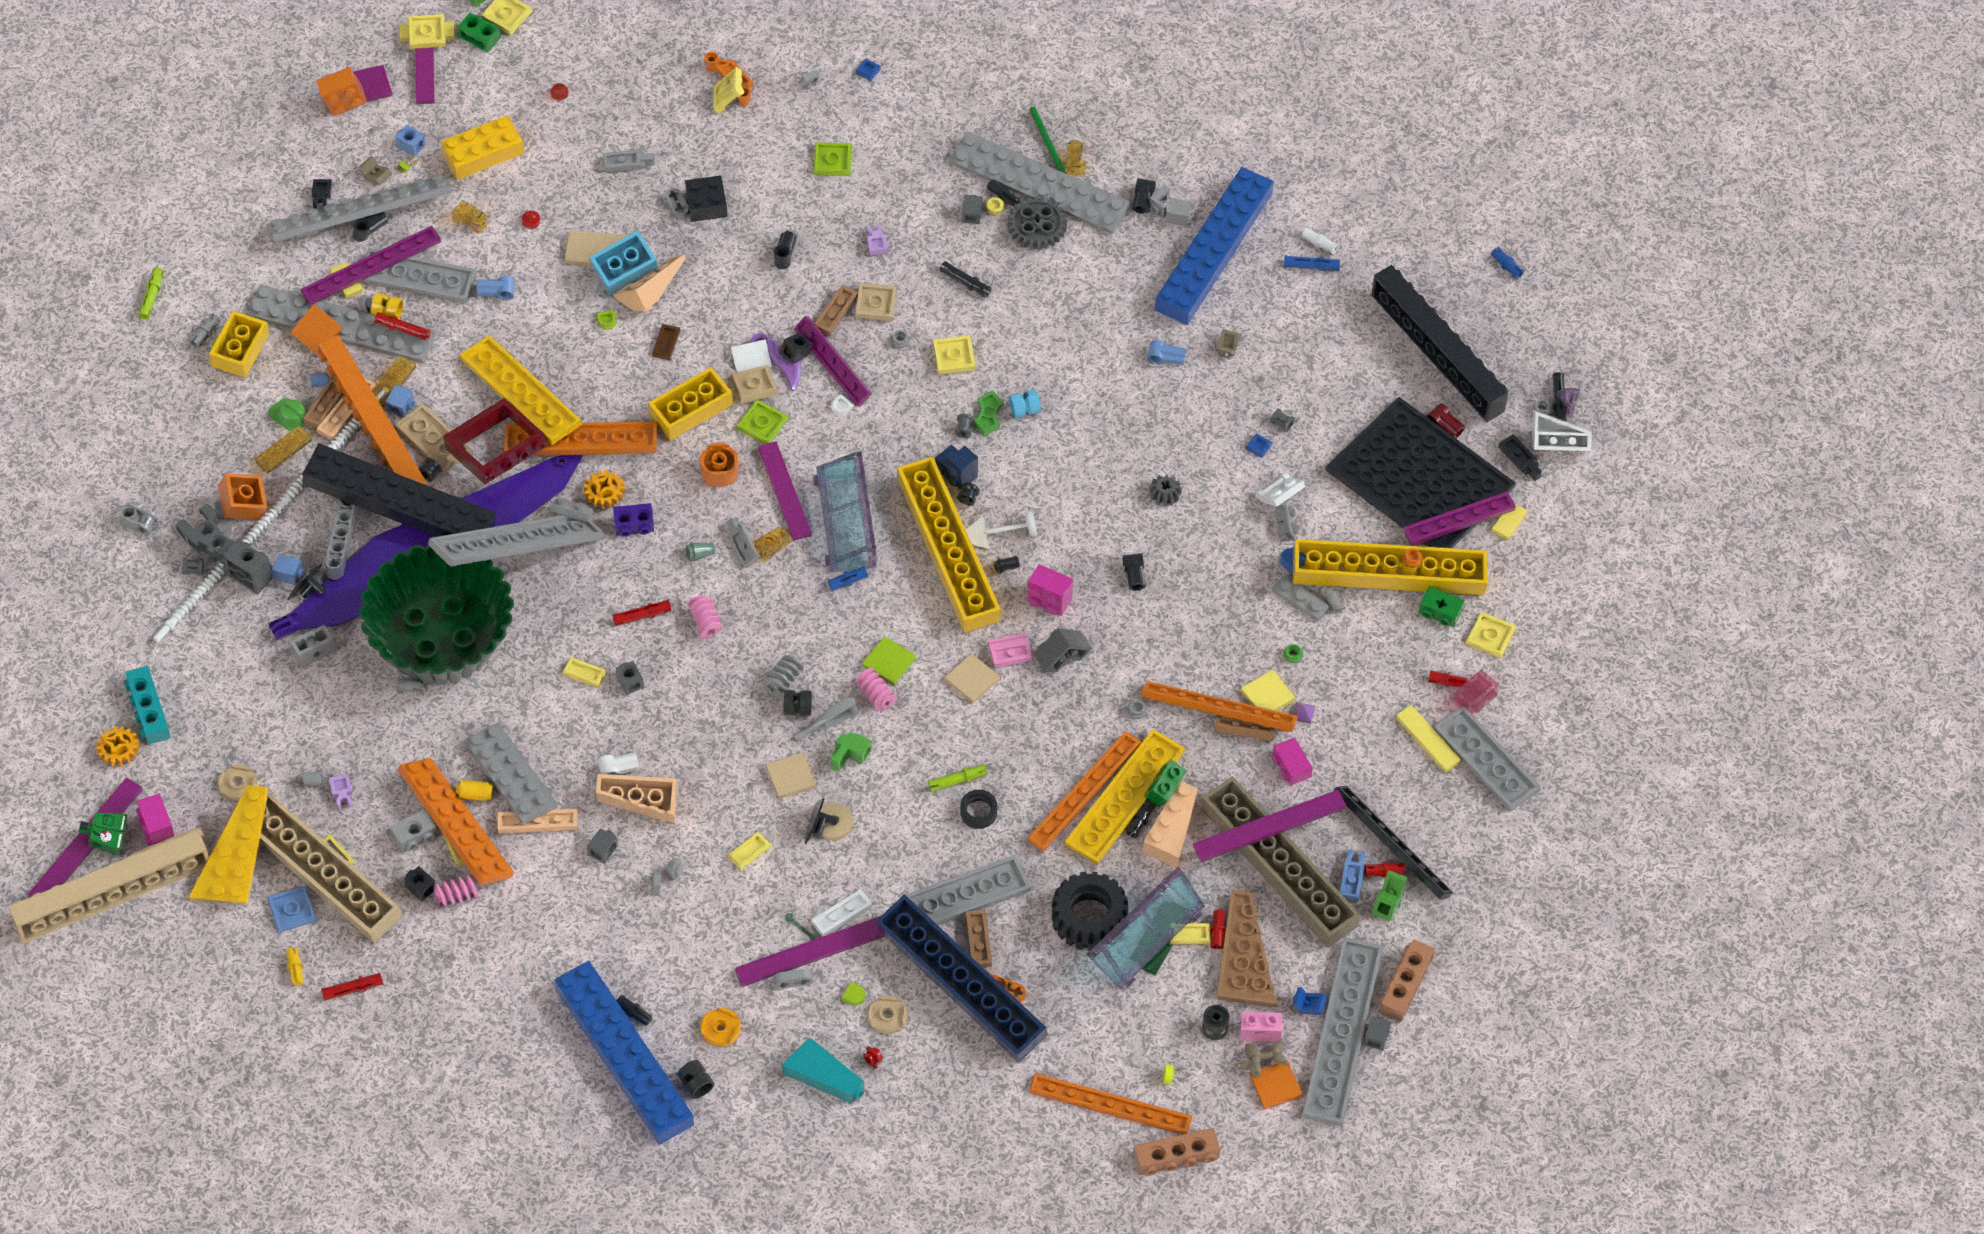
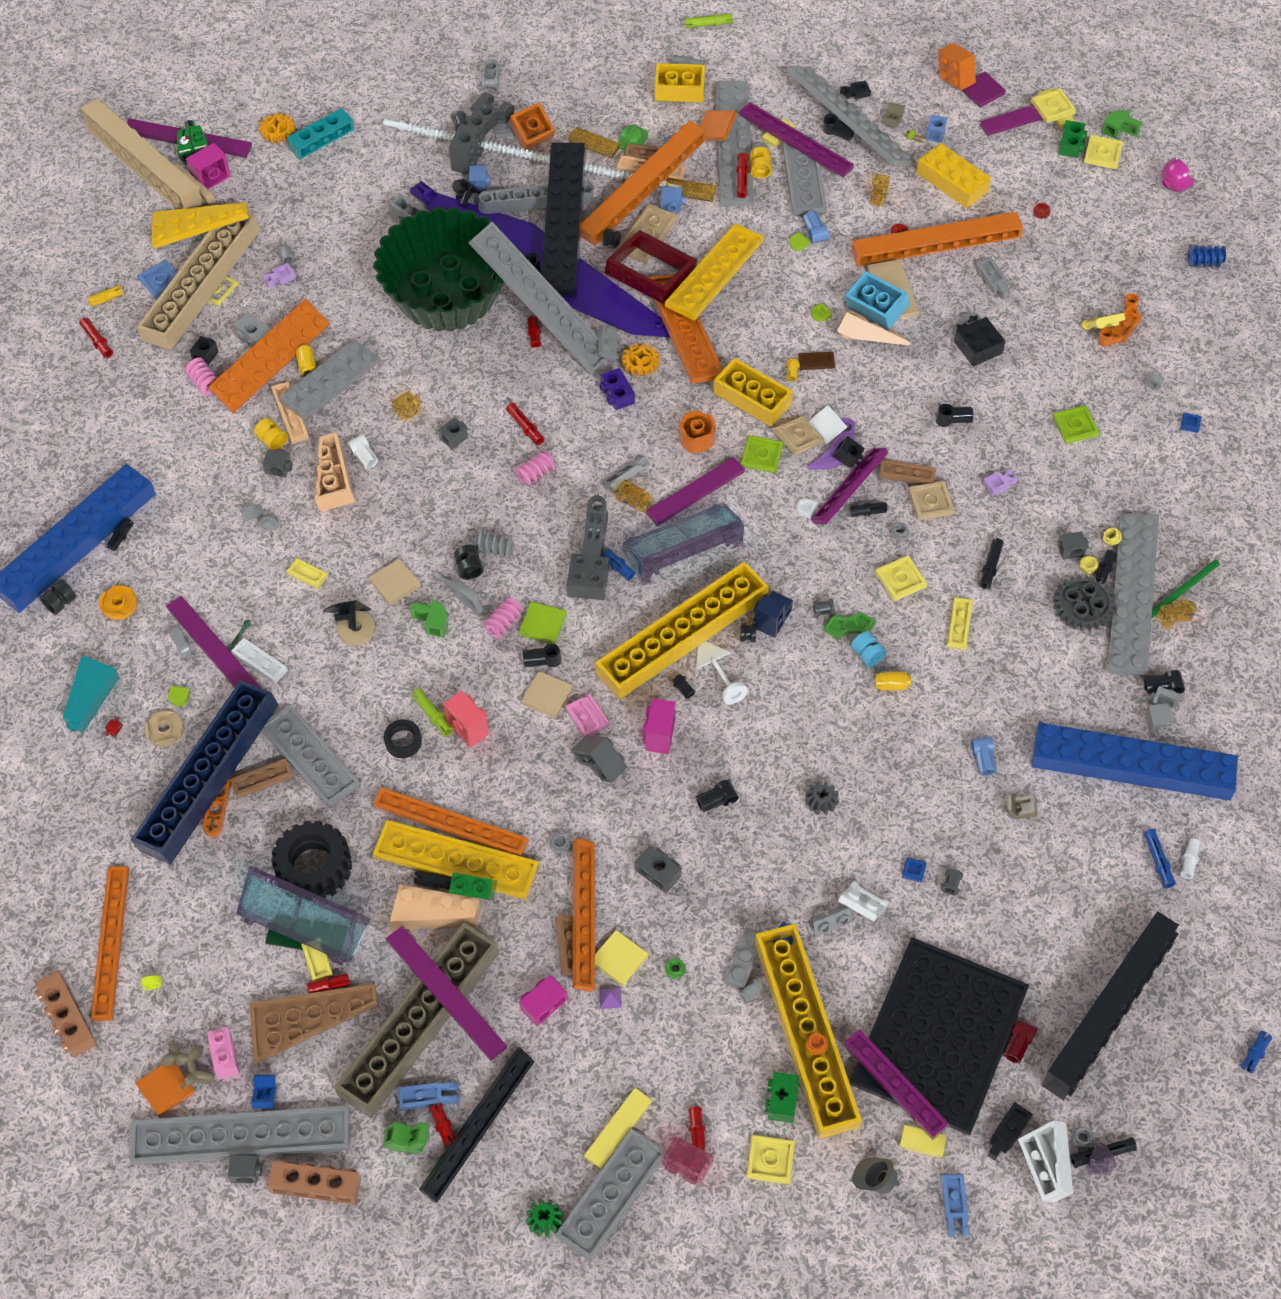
camera: 75 degrees right, 0 degrees up
(235, 772) = (270, 218): tan tile -> none
(505, 309) = (799, 242): none -> lime tile
(523, 574) = (534, 332): none -> red axle
(558, 192) = (936, 239): none -> orange brick
(563, 842) = (270, 434): none -> yellow wheel
(576, 718) = (406, 406): none -> clear yellow brick
(584, 672) = (451, 402): light yellow tile -> none
(667, 363) = (792, 369): none -> yellow pin
(696, 551) = (604, 445): sand green cone -> none
(847, 604) = (589, 569): none -> dark grey brick
(865, 355) = (868, 509): none -> black axle
(930, 669) = (542, 657): none -> black piece
(967, 176) = (1112, 536): none -> light yellow plate
(983, 745) = (466, 718): none -> coral brick
(1019, 326) = (960, 623): none -> light yellow tile
(1063, 397) = (893, 681): none -> yellow head
(1187, 645) = (664, 878): none -> dark grey brick
(1215, 1022) = (216, 1008): pearl dark grey wheel -> none
(1499, 812) = (543, 1225): none -> green gear
(1531, 561) = (875, 1175): none -> dark grey piece
(1571, 515) = (955, 1202): none -> medium blue hinge

